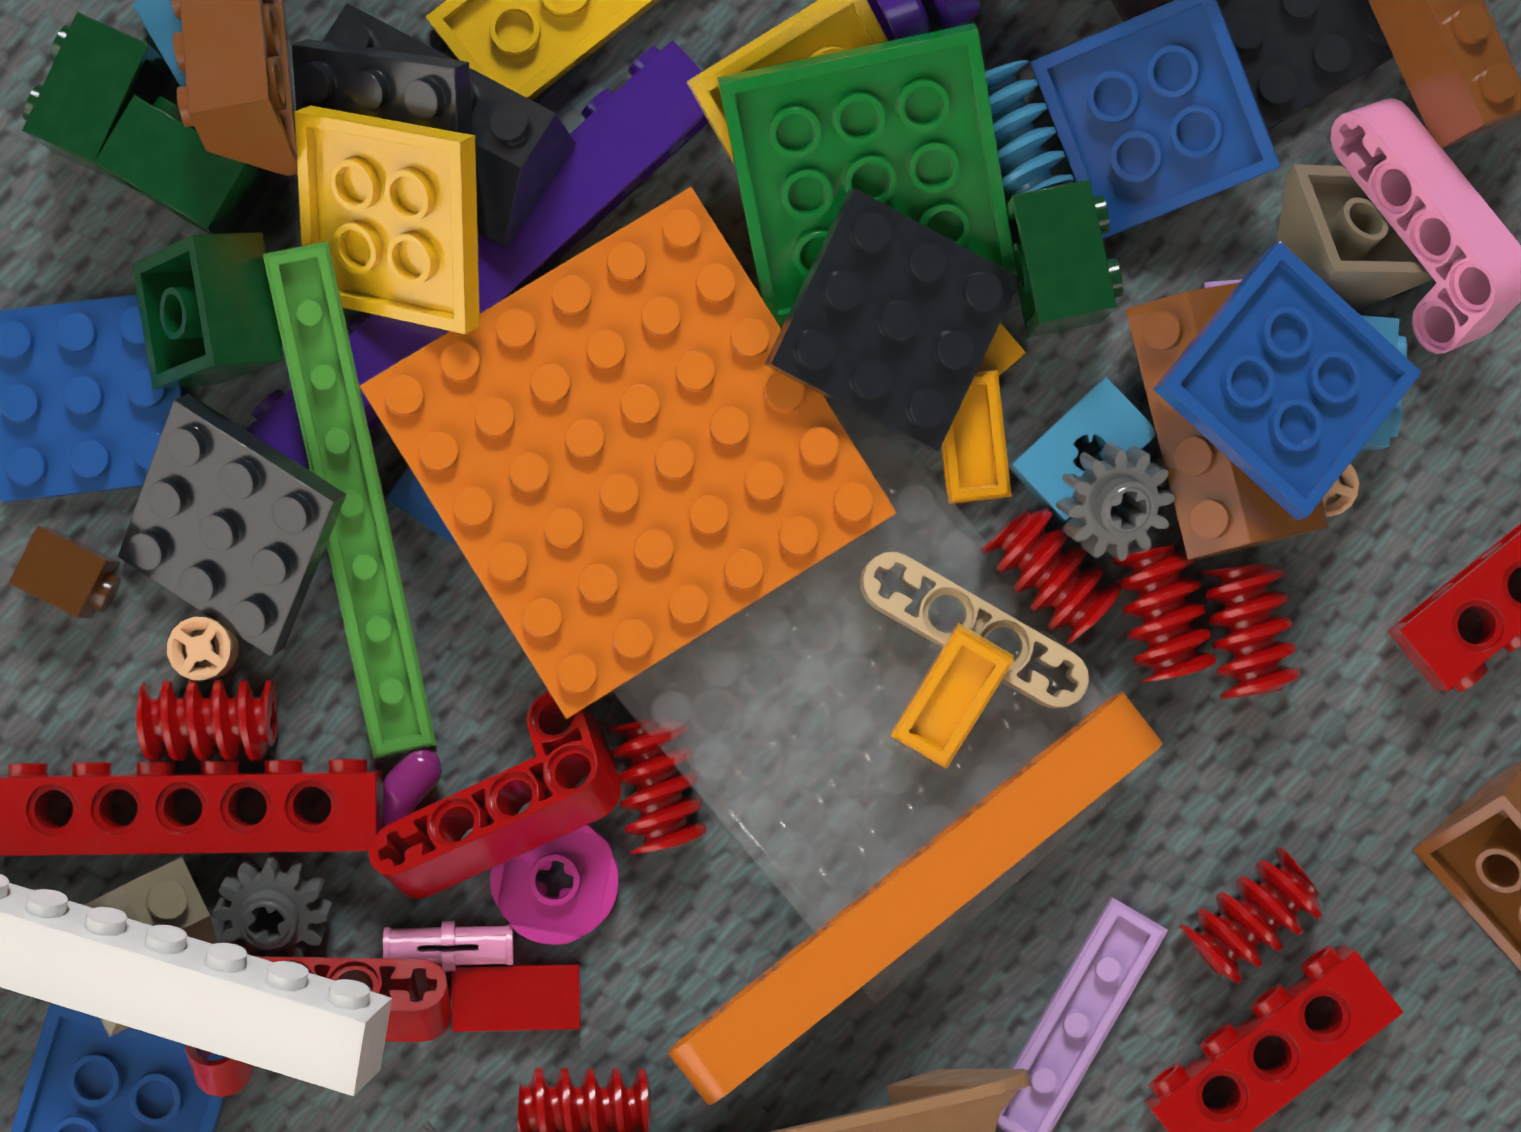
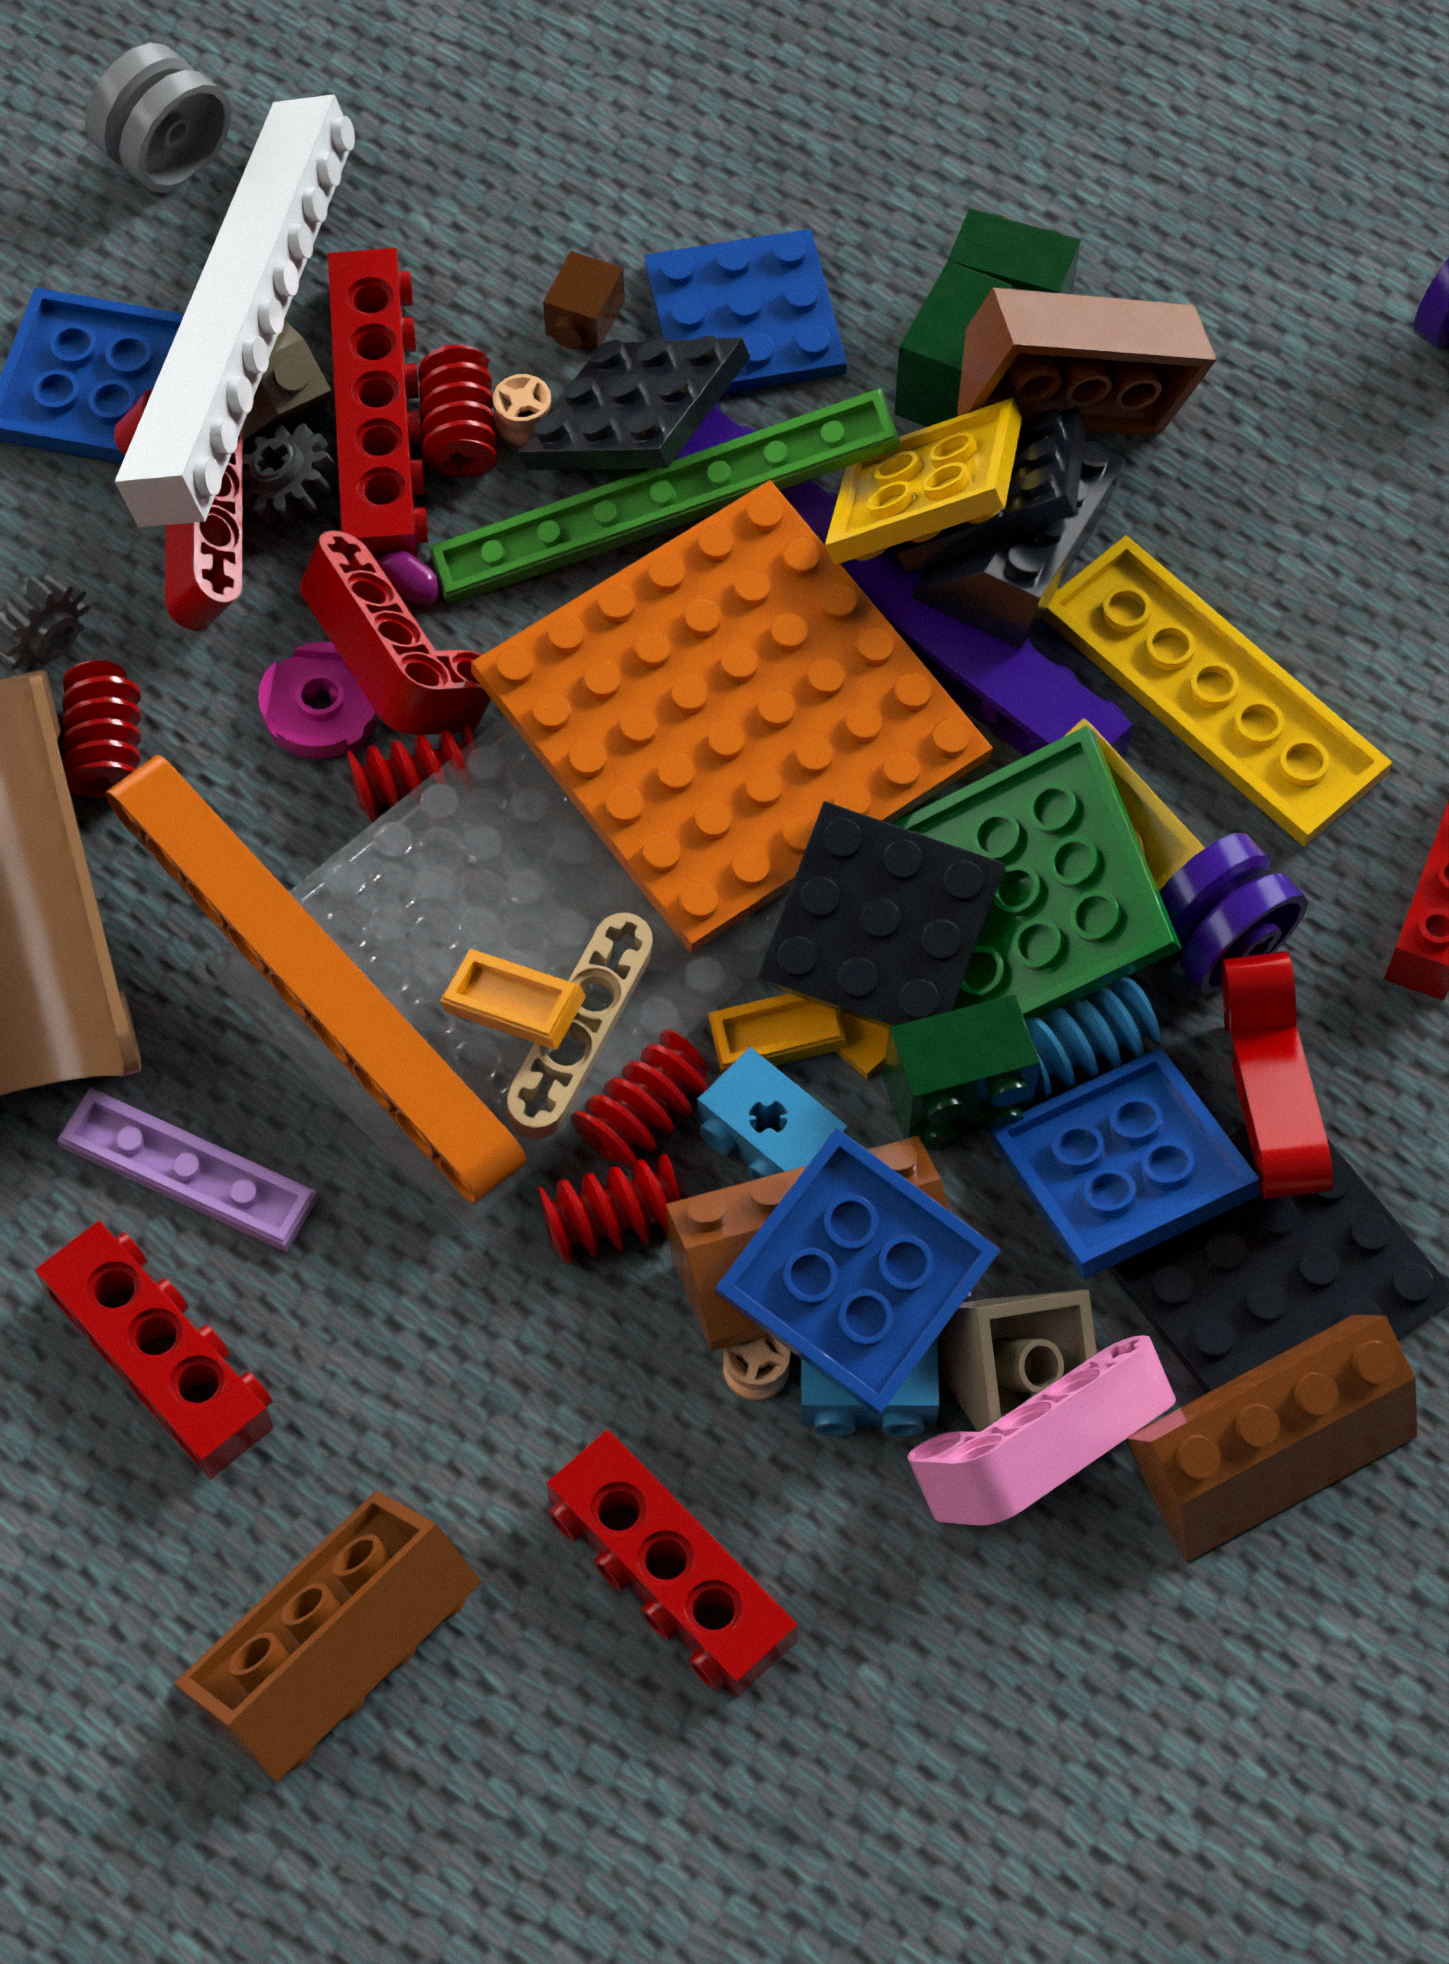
camera: 85 degrees right, 25 degrees down
(207, 310) = (827, 370): dark green brick -> none
(493, 943) = (256, 651): bright pink pin -> none
(516, 997) = (207, 681): red tile -> none
(1115, 501) = (737, 1144): dark grey gear -> none
(1251, 630) = (599, 1294): red piece -> none
(1254, 917) = (295, 1322): red piece -> none

